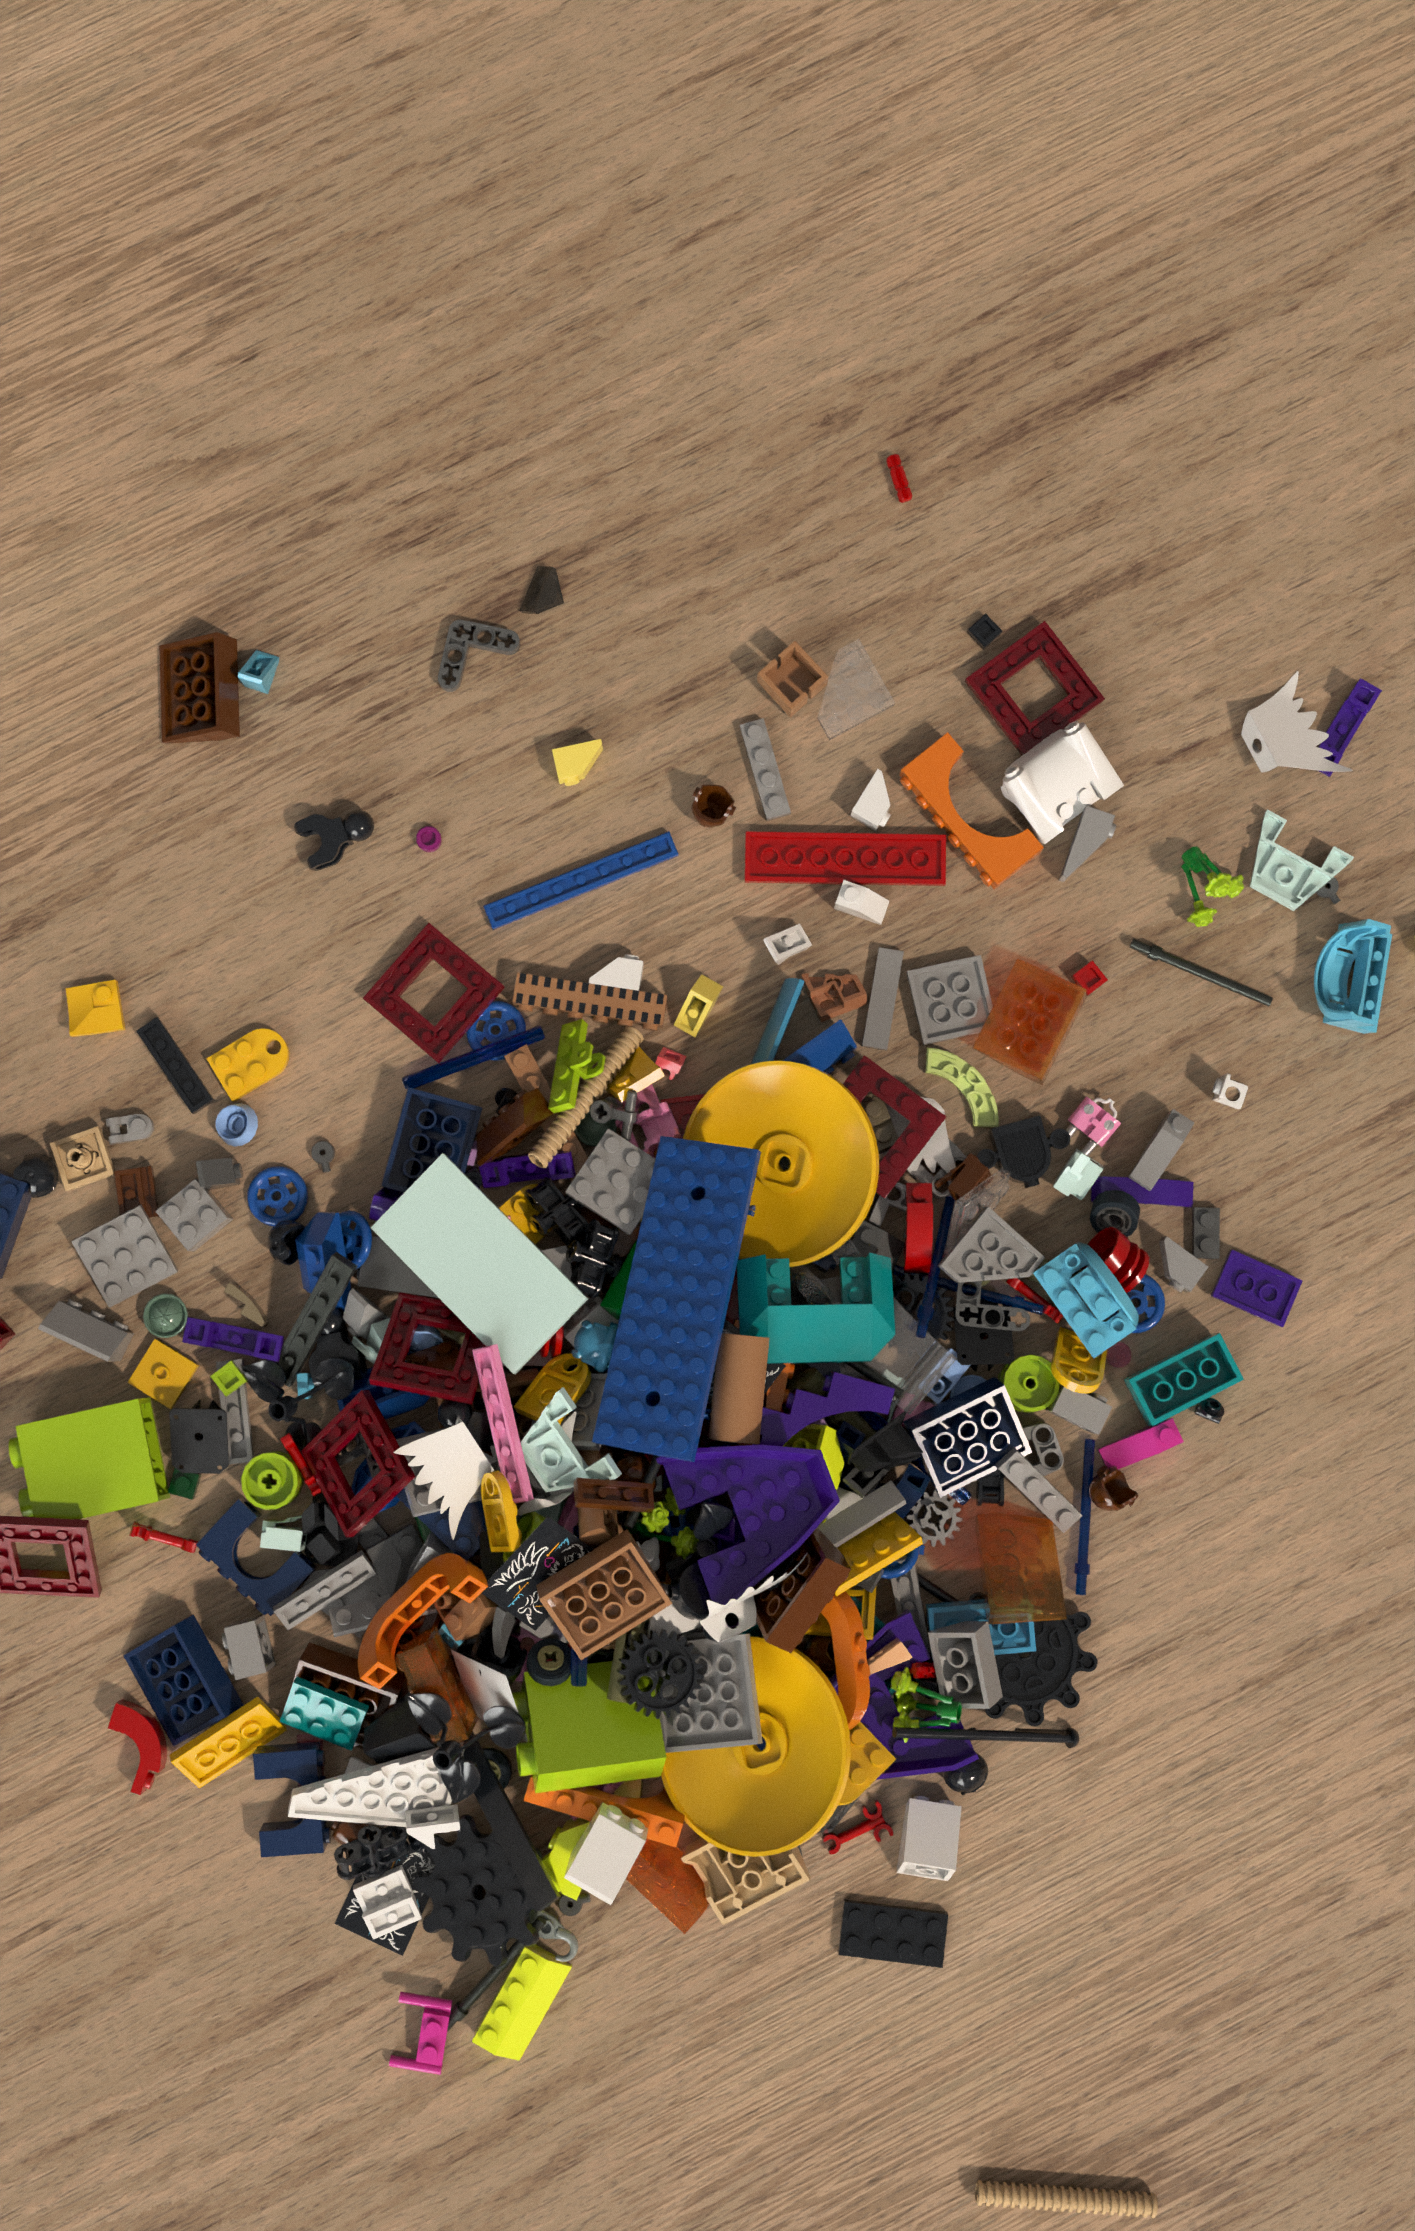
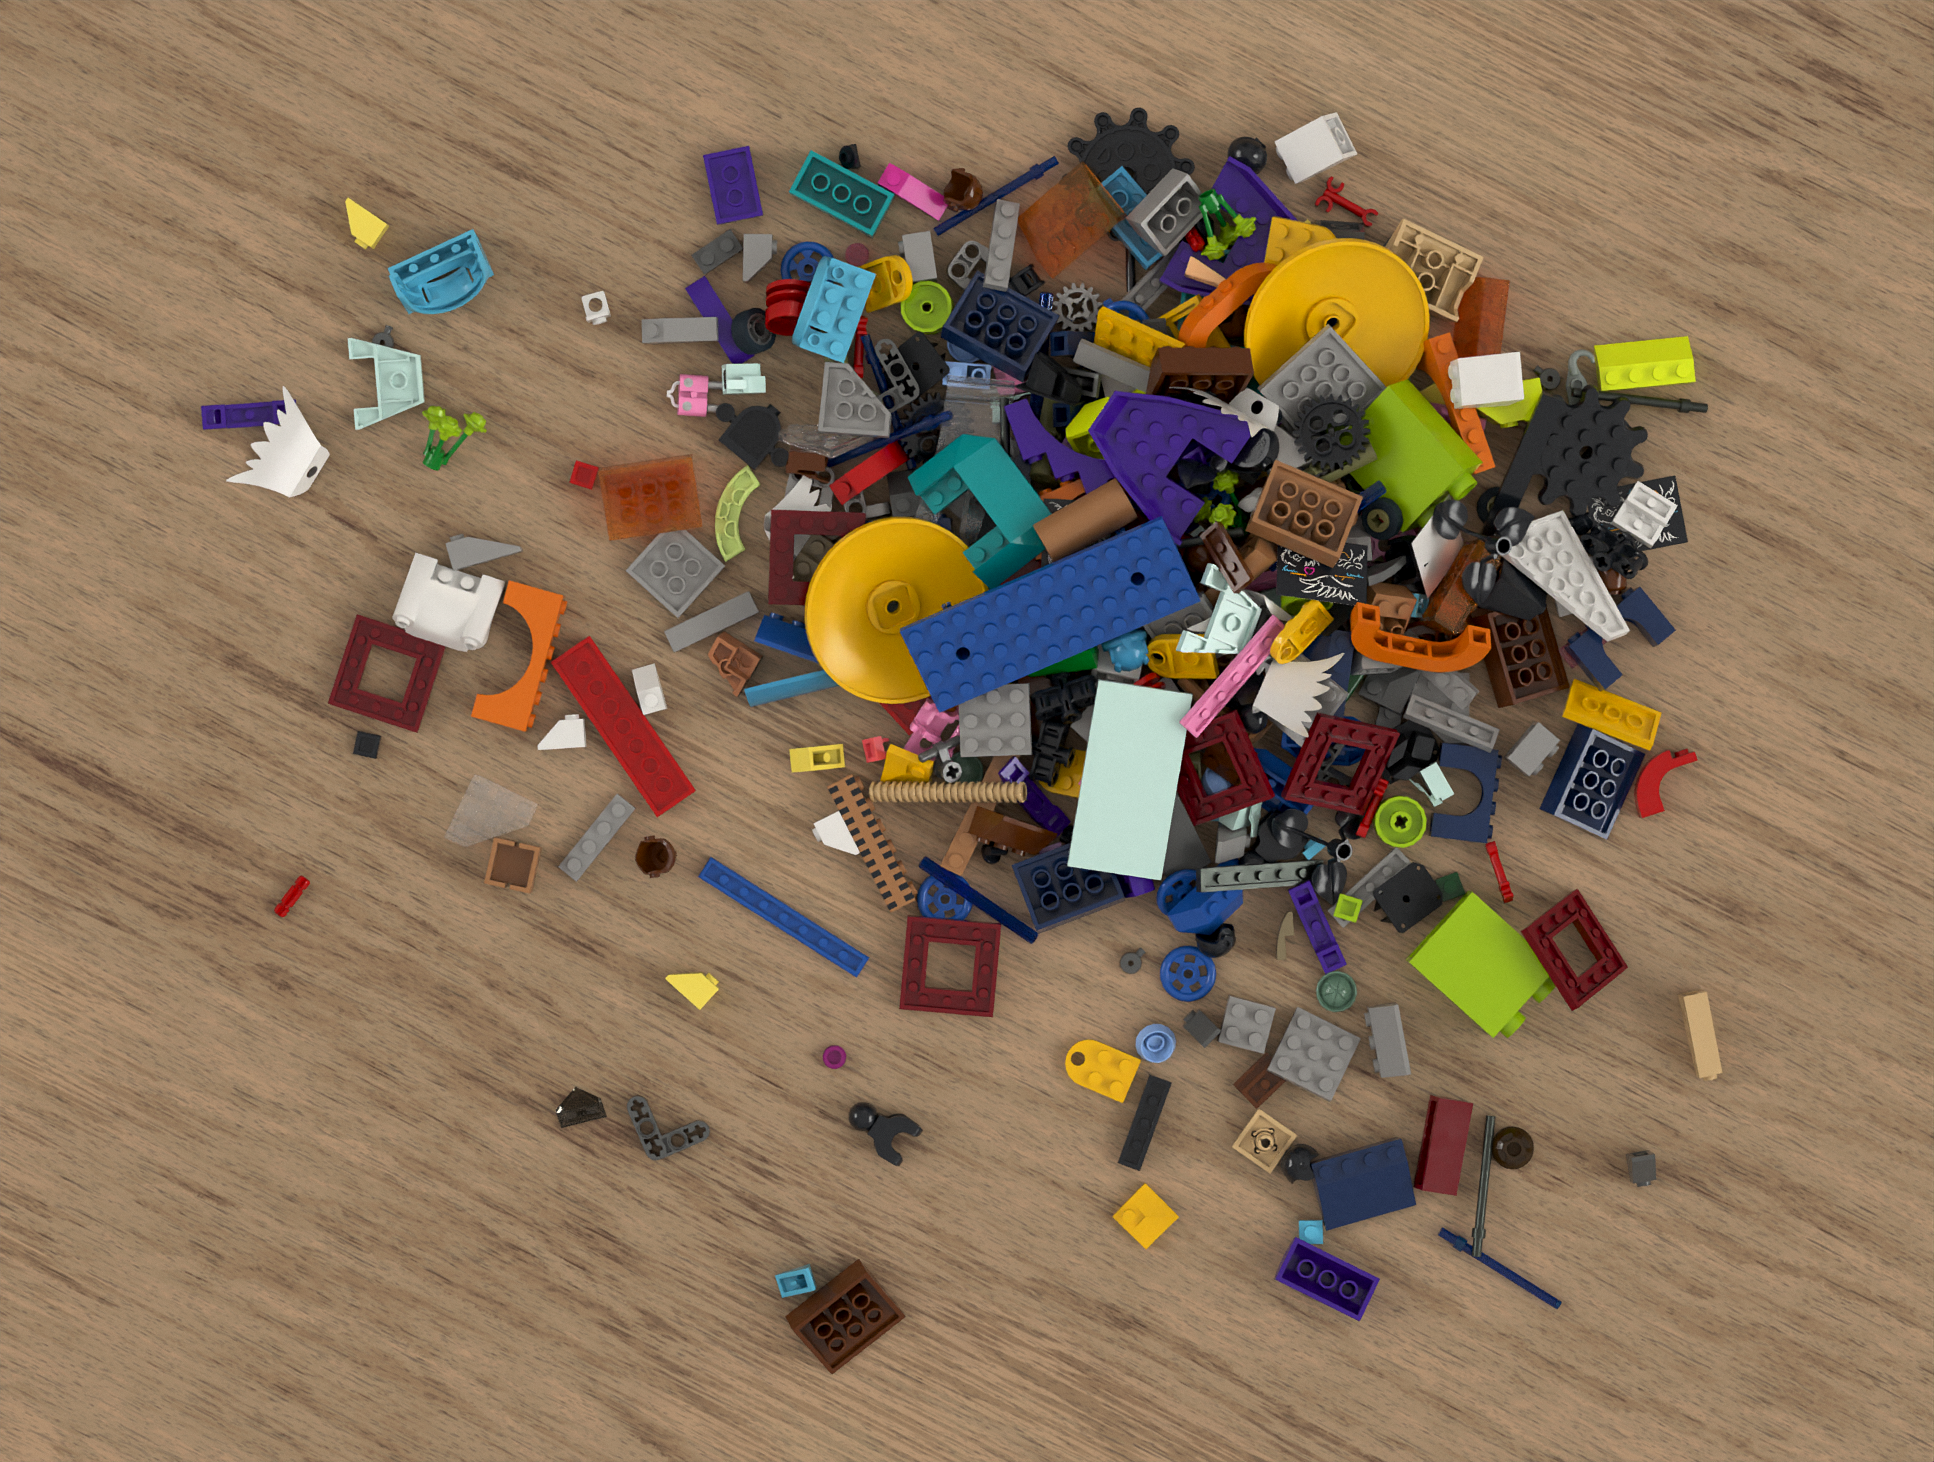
camera: 125 degrees left, 5 degrees up
(138, 1128) = (1210, 1117): light grey plate -> none
(163, 1373) = (1380, 962): yellow plate -> none
(324, 1713) = (1540, 659): teal plate -> none
(426, 1822) = (1562, 525): white slope -> none
(432, 2034) = (1714, 413): dark pink plate -> none
(573, 1061) = (928, 820): lime plate -> none
(787, 943) = (721, 723): white slope -> none
(893, 1933) = (1402, 126): black plate -> none
(1068, 1736) = (1167, 95): black bar -> none
(1155, 953) = (528, 438): pearl dark grey bar -> none

